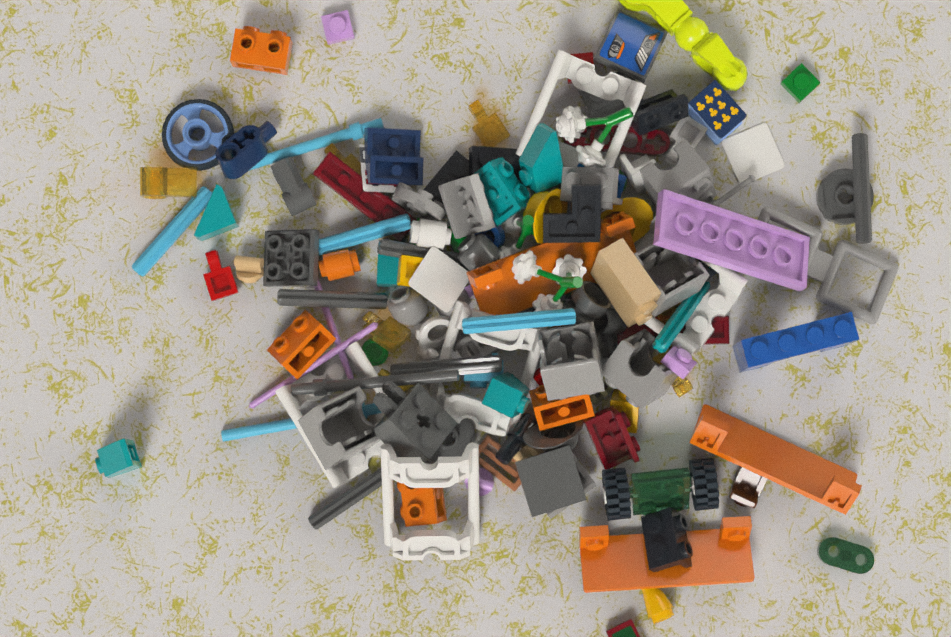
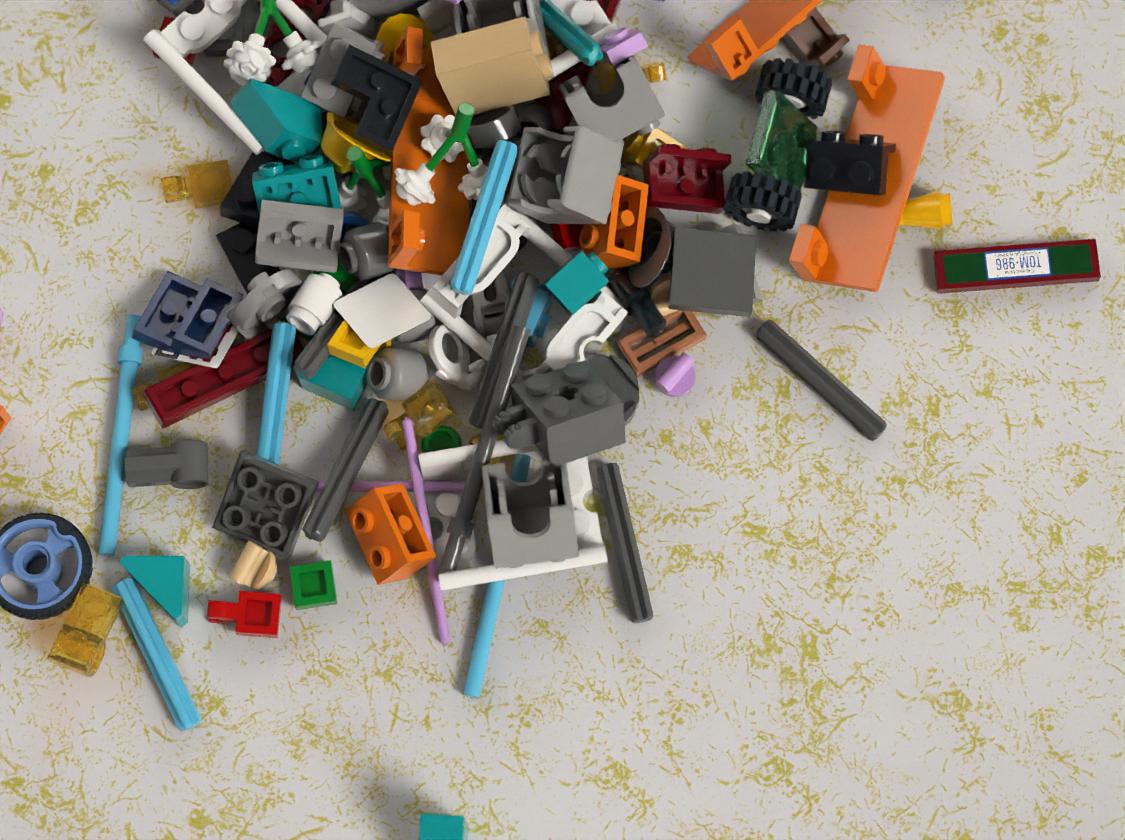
camera: 65 degrees left, 10 degrees down
(244, 149) = (88, 508): dark blue piece -> none
(252, 309) = (313, 585): none -> green plate
(339, 264) = (302, 443): orange brick -> none
(422, 505) = (666, 446): orange brick -> none
(441, 474) = (636, 425): white piece -> none
(514, 577) = (821, 380): none -> dark grey axle

